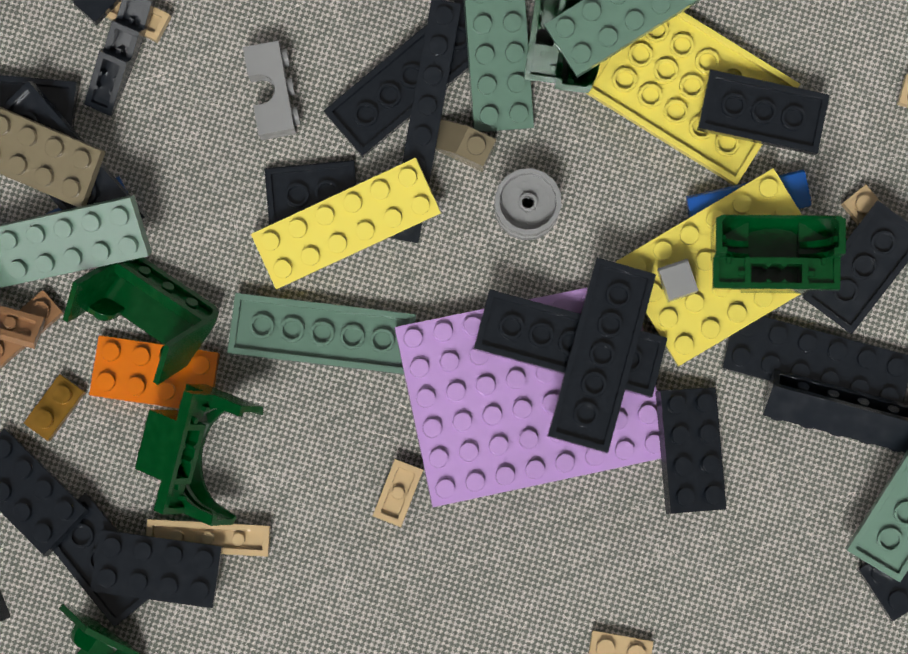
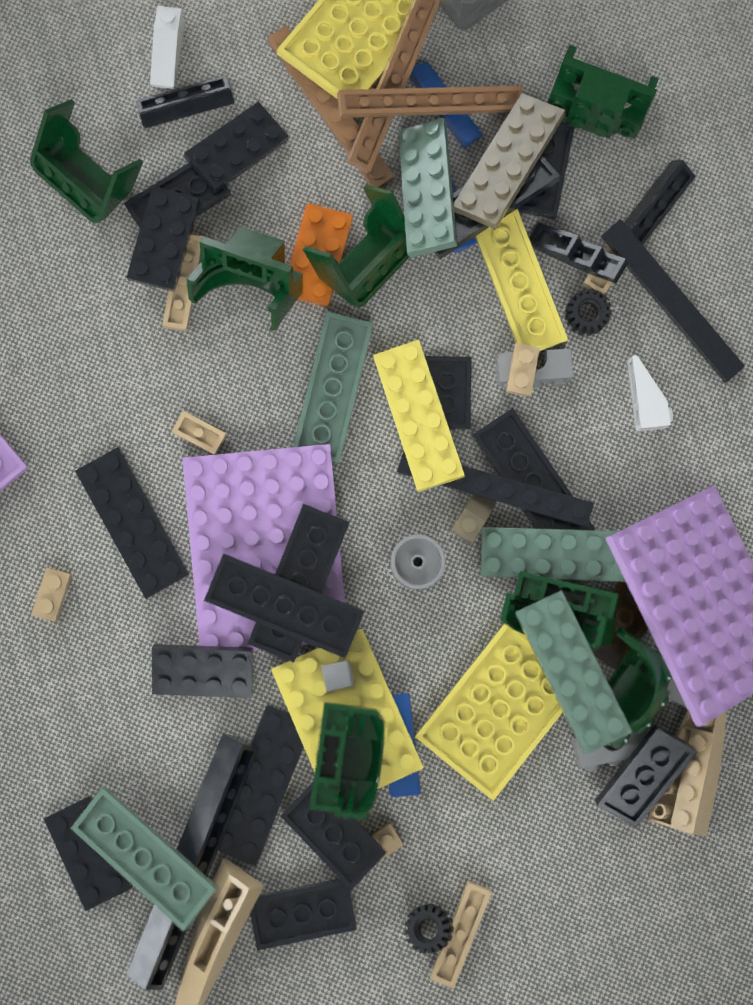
camera: 85 degrees right, 0 degrees up
(54, 407) = (300, 176): pearl gold plate -> none
(170, 115) = (521, 284): none -> light yellow plate
(180, 19) = (593, 299): none -> black tyre
(276, 101) = (522, 370): none -> tan plate
(519, 562) = (132, 523): none -> black plate
(763, 112) = (471, 766): black plate -> none

